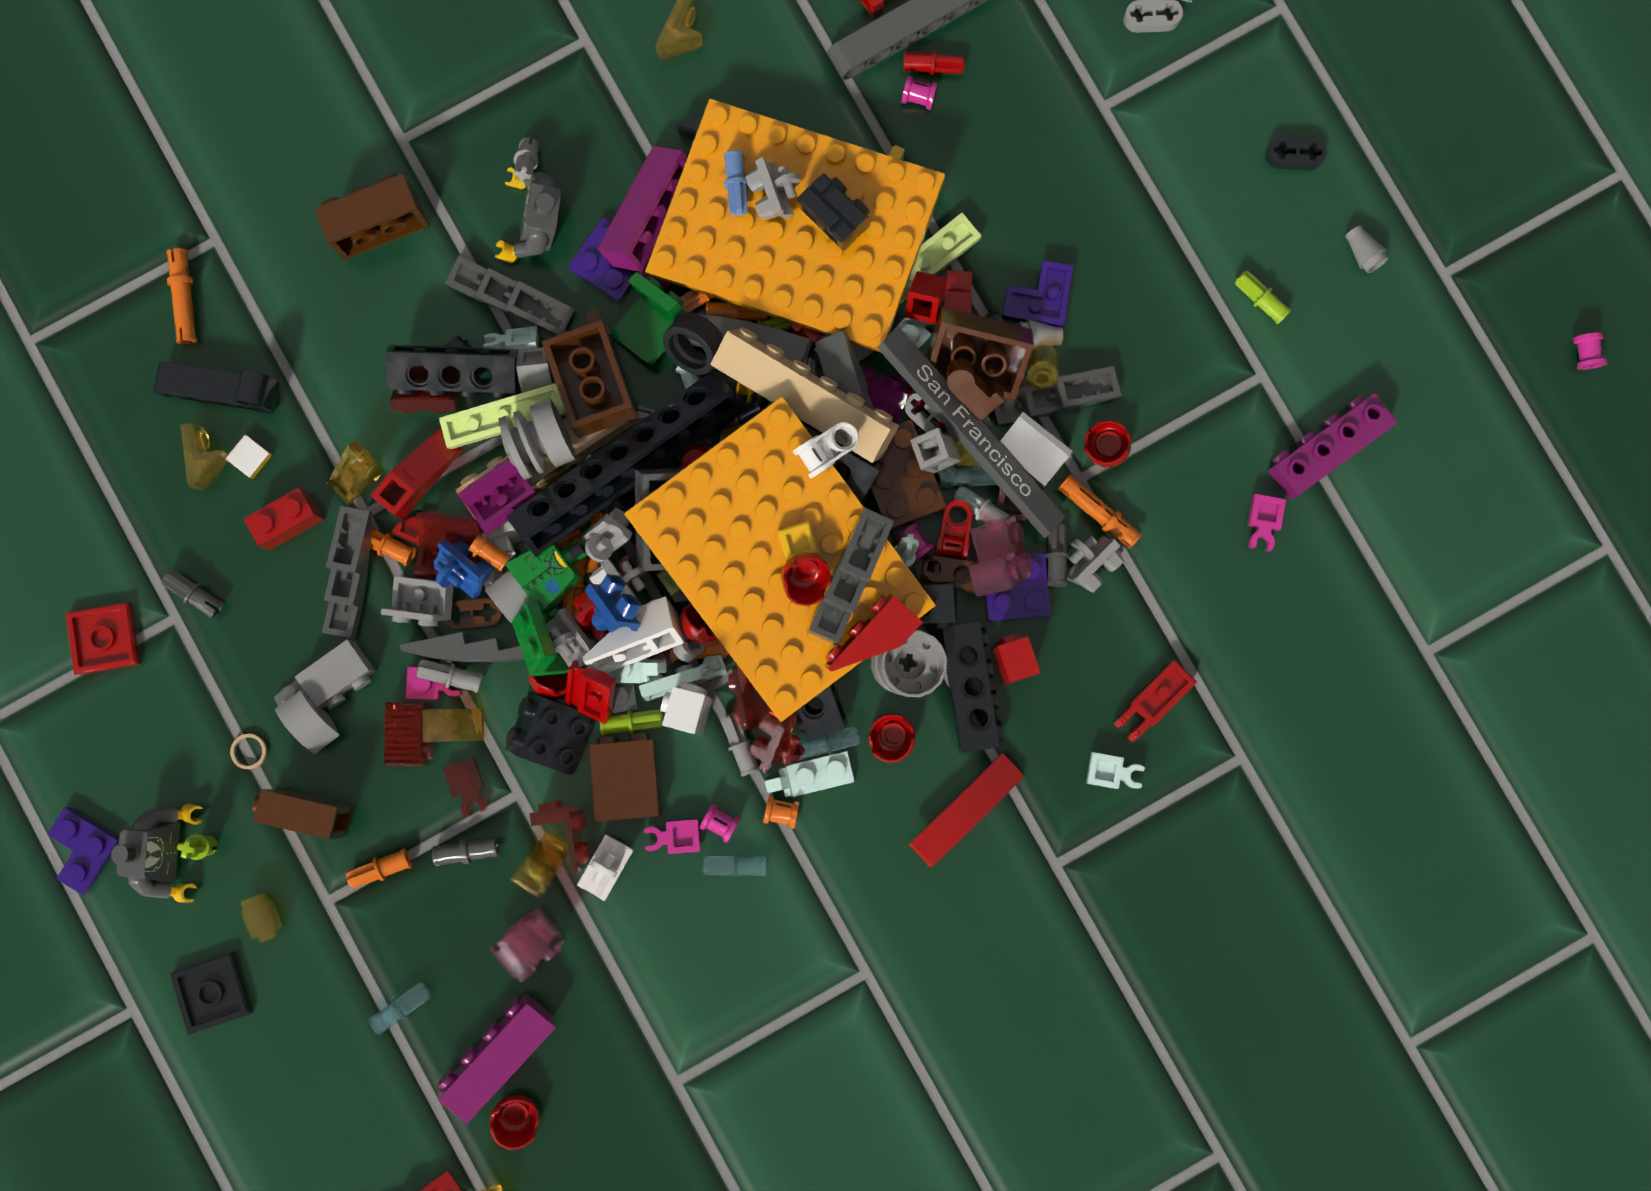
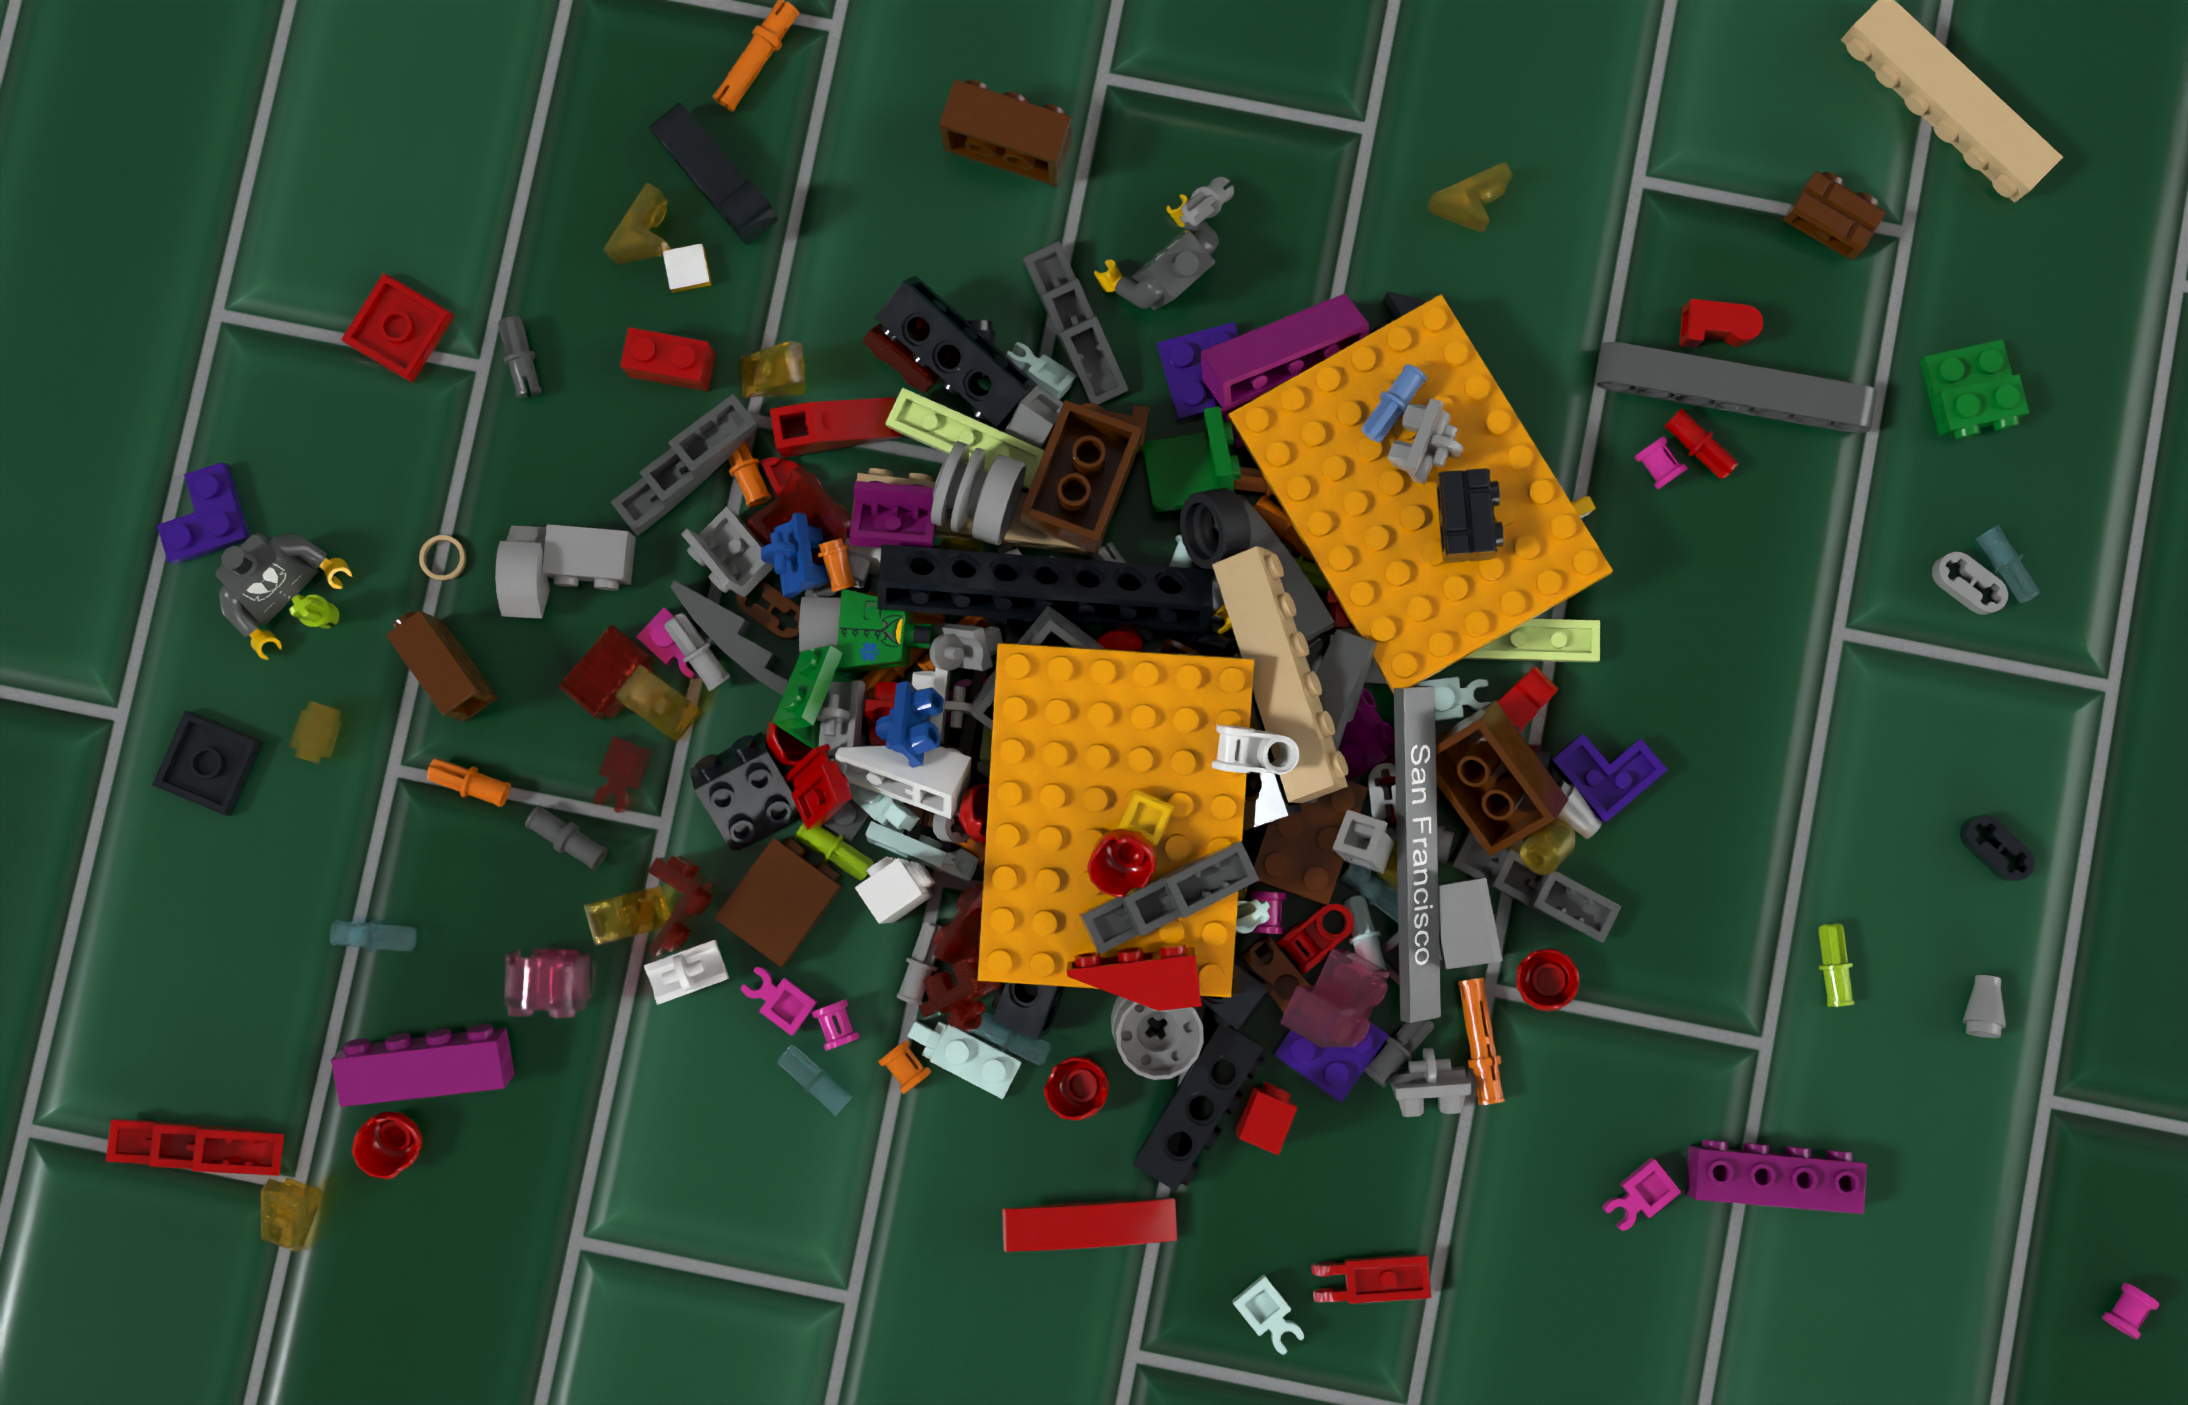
camera: 45 degrees right, 0 degrees up
(925, 297) = (1488, 677): red brick -> none
(972, 389) = (1454, 811): reddish brown leg -> none

